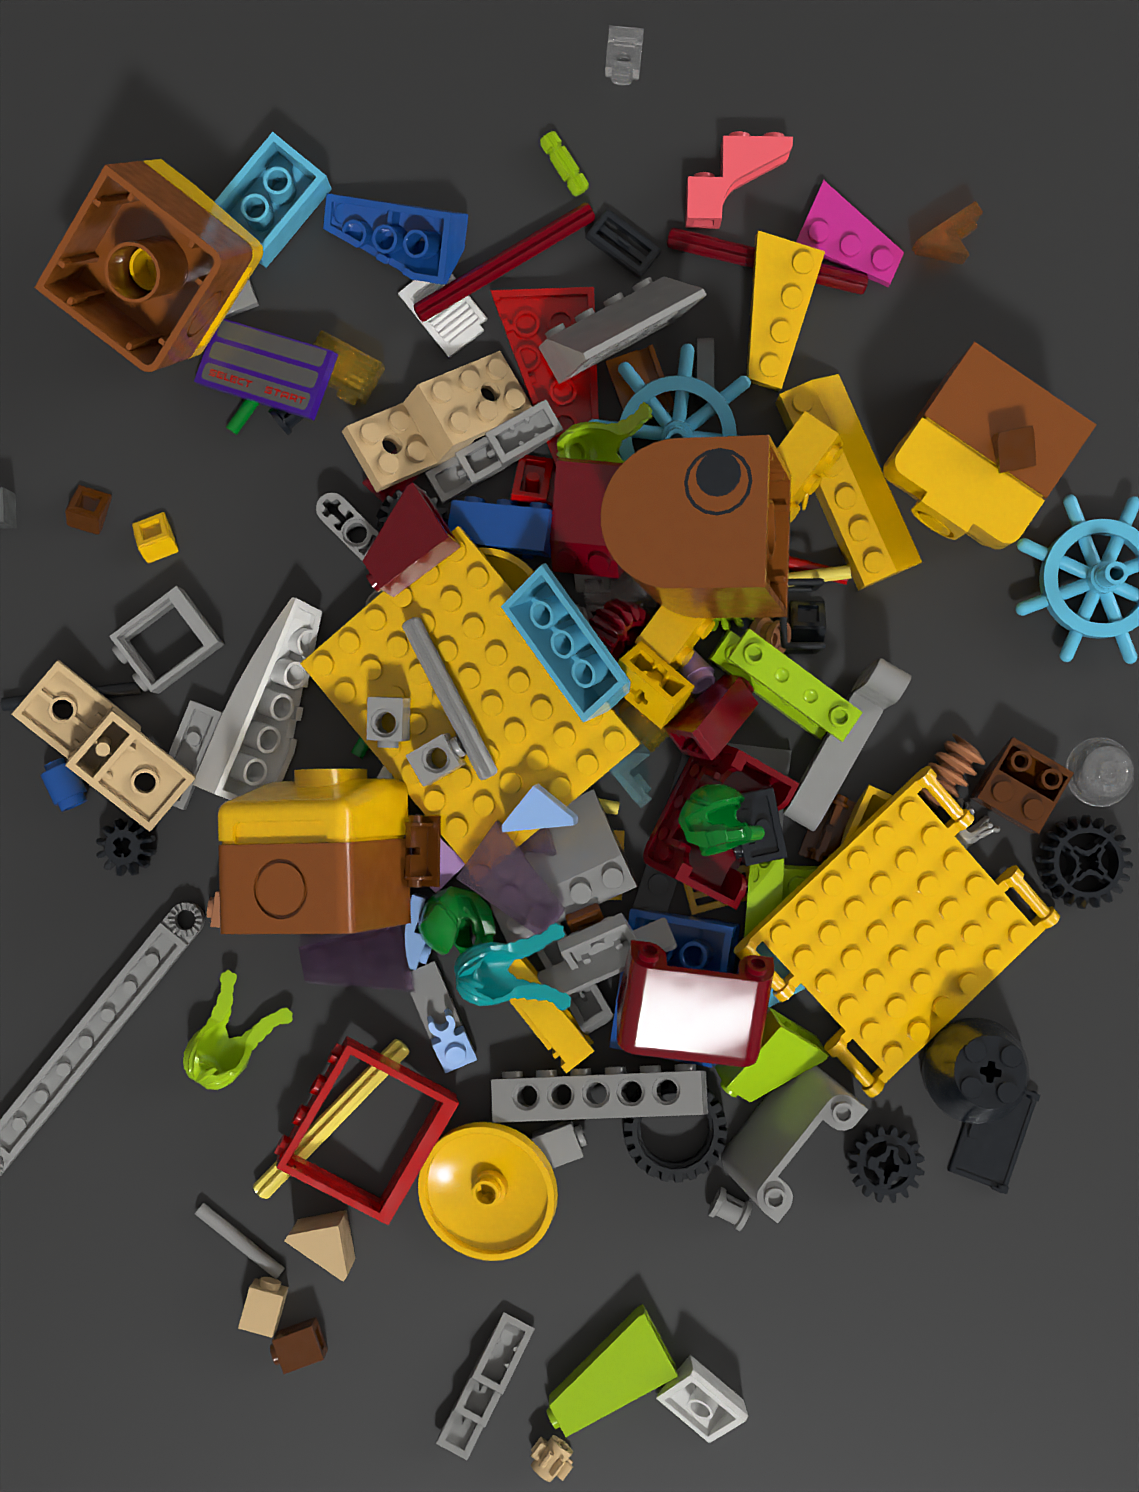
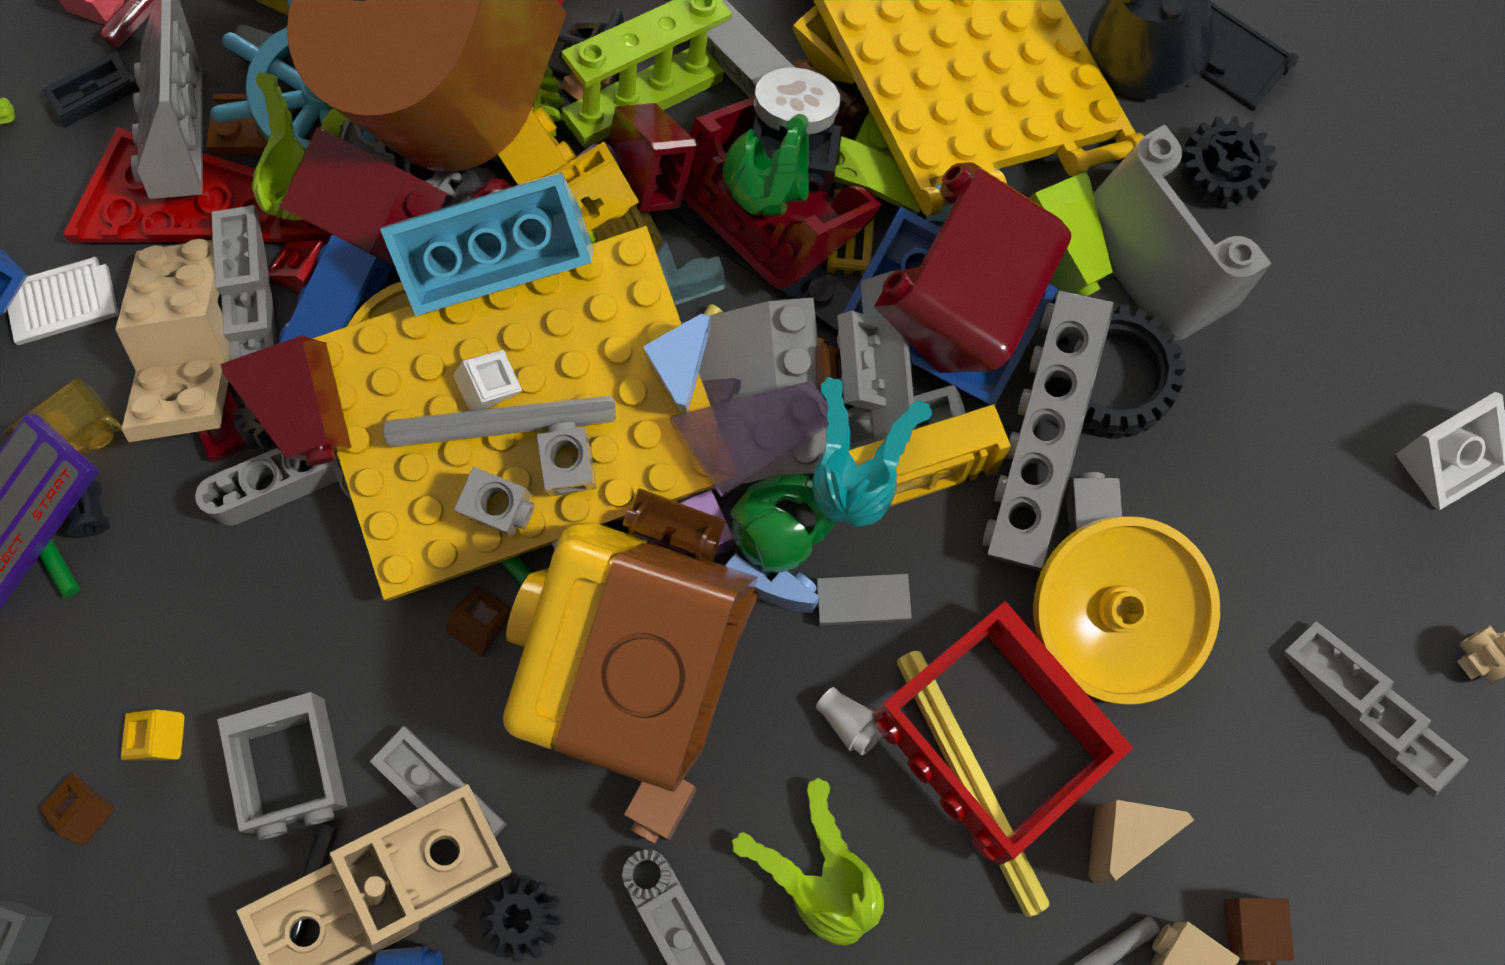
camera: 70 degrees left, 15 degrees down
(260, 719) = (423, 676): white wedge -> none
(318, 730) = (478, 620): none -> reddish brown slope
(340, 1020) = (850, 721): none -> white cone
(360, 959) = (781, 667): clear purple wing -> none
(451, 1044) = (929, 591): light blue plate -> none
(475, 676) = (486, 380): none -> white slope
(504, 262) = (41, 216): dark red axle -> none
(614, 1374) = (1400, 544): lime slope -> none
(730, 1209) = (1232, 342): light grey bush -> none
(795, 815) = (793, 92): none -> tile

